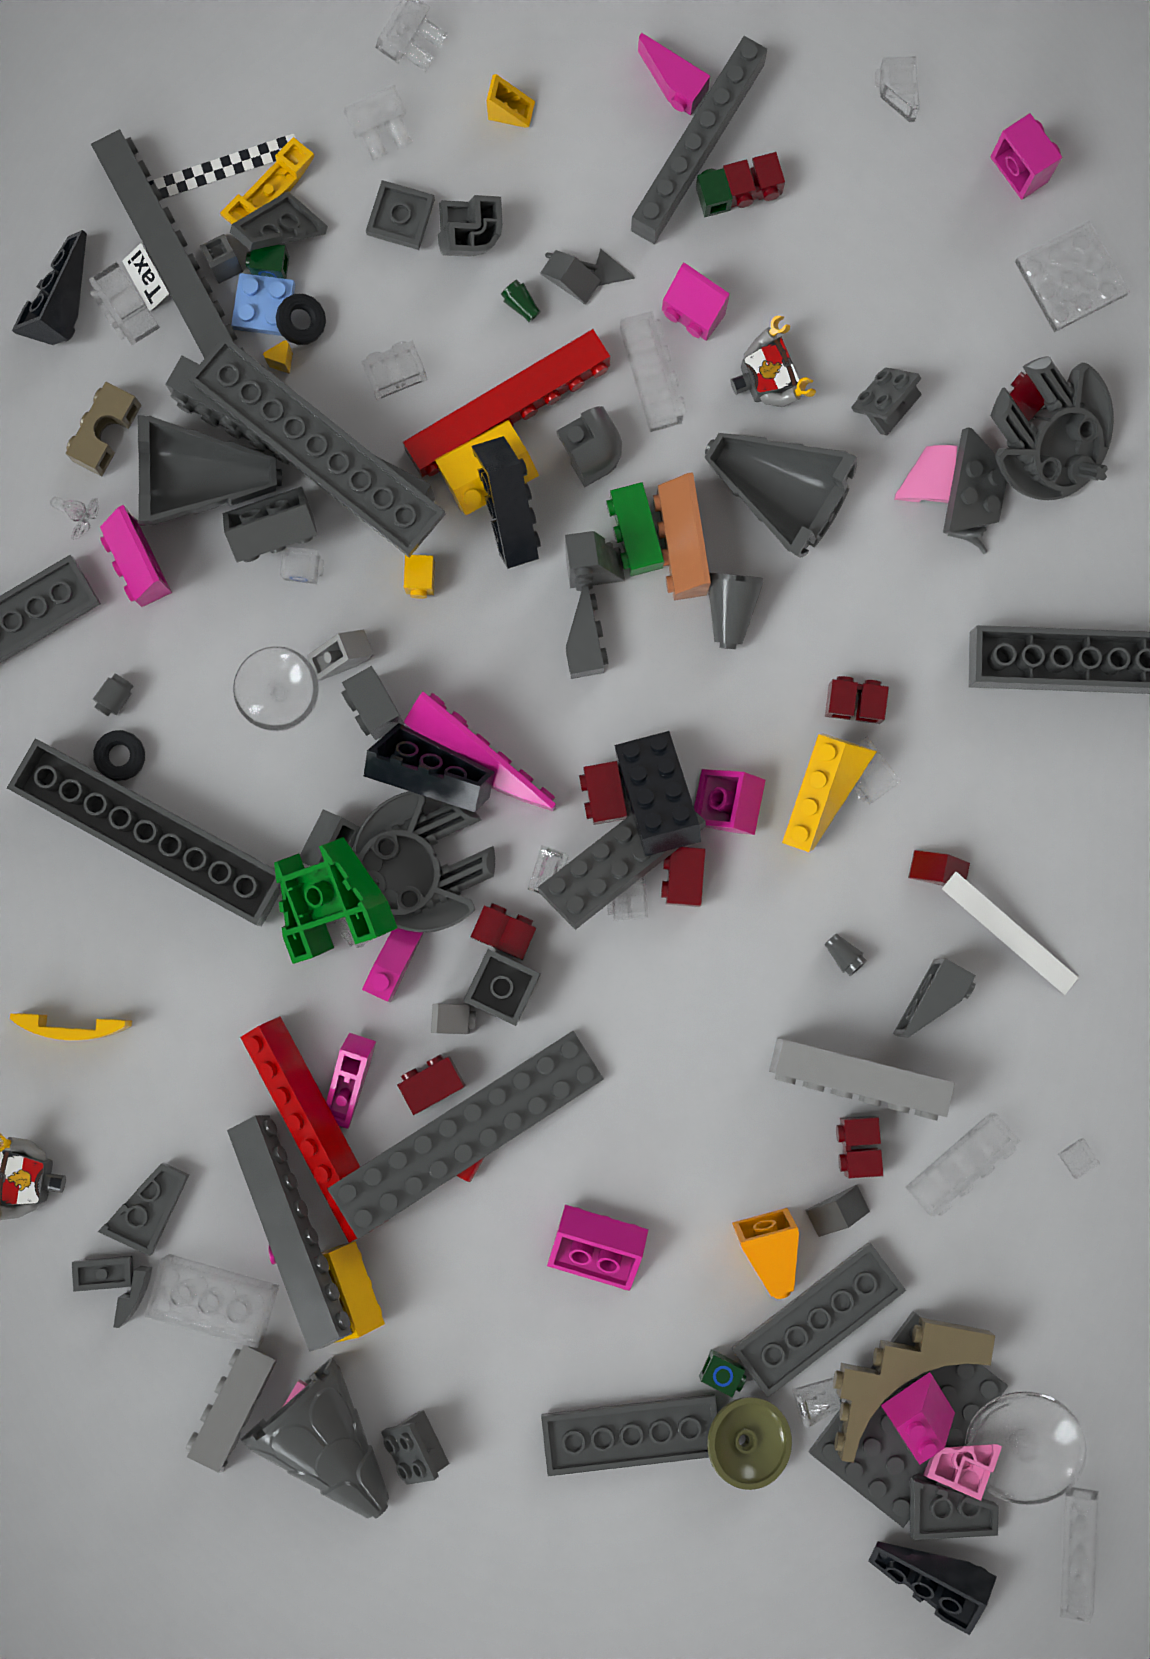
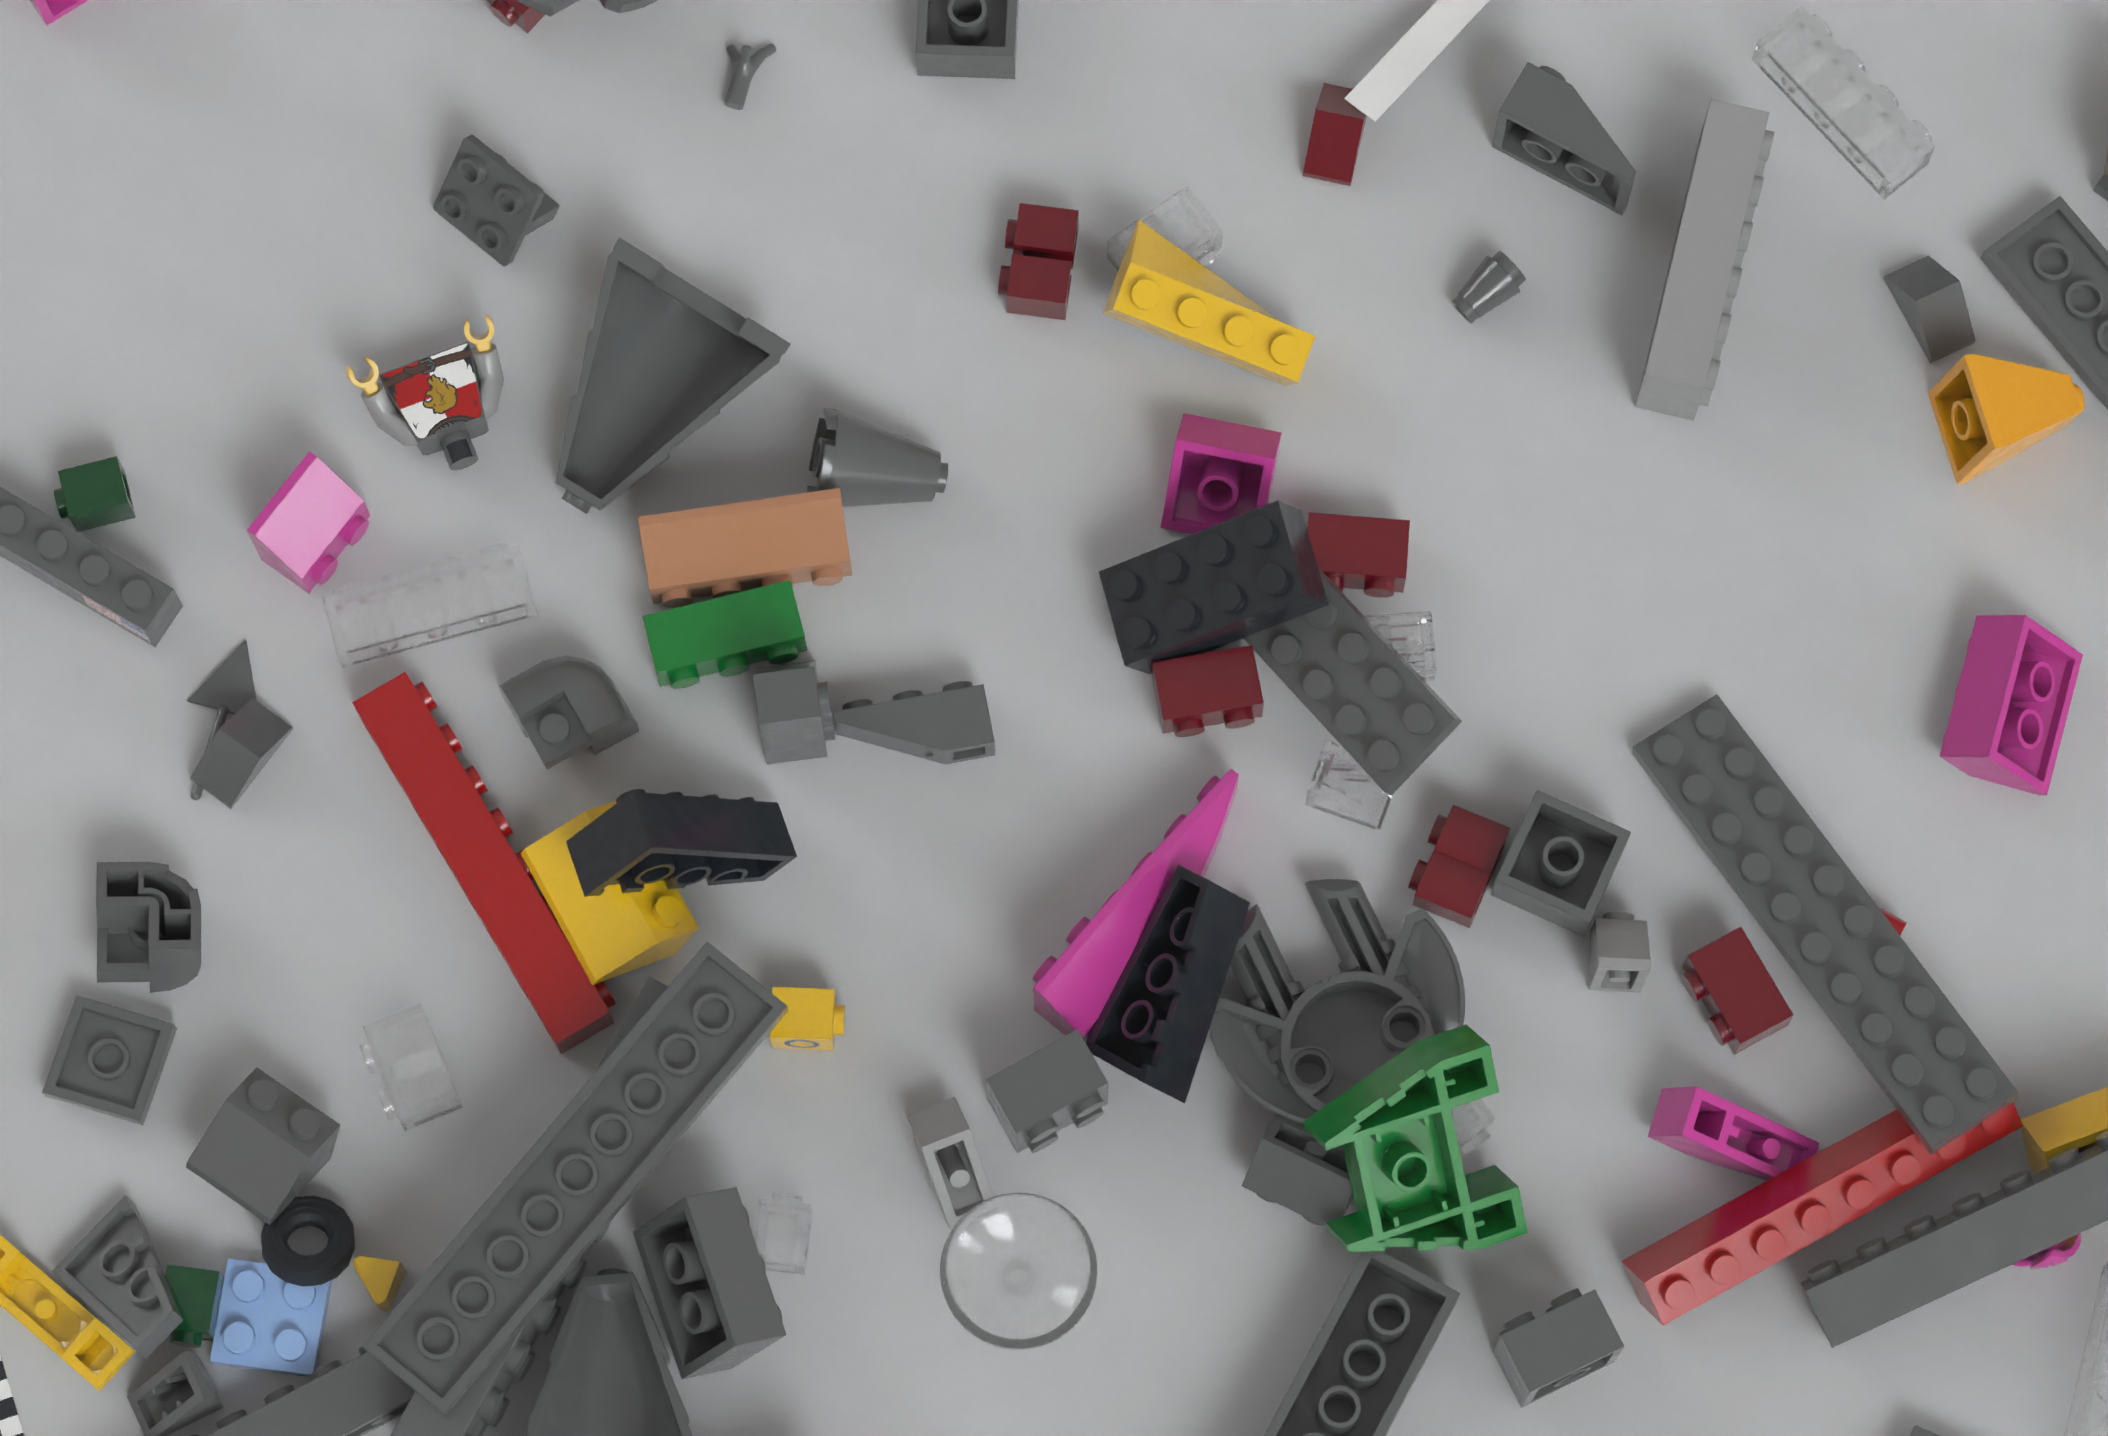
camera: 90 degrees left, 10 degrees down
(228, 978) = (1557, 1346): none -> dark grey brick
(348, 292) = (264, 1146): none -> dark grey slope
(392, 963) = (1533, 1064): dark pink slope -> none
(520, 300) = (285, 840): dark green cone -> none
(759, 182) = (76, 418): dark red piece -> none
(863, 1161) = (1844, 261): dark red piece -> none
(930, 476) = (637, 131): bright pink slope -> none
(976, 486) = (659, 56): dark grey wing -> none

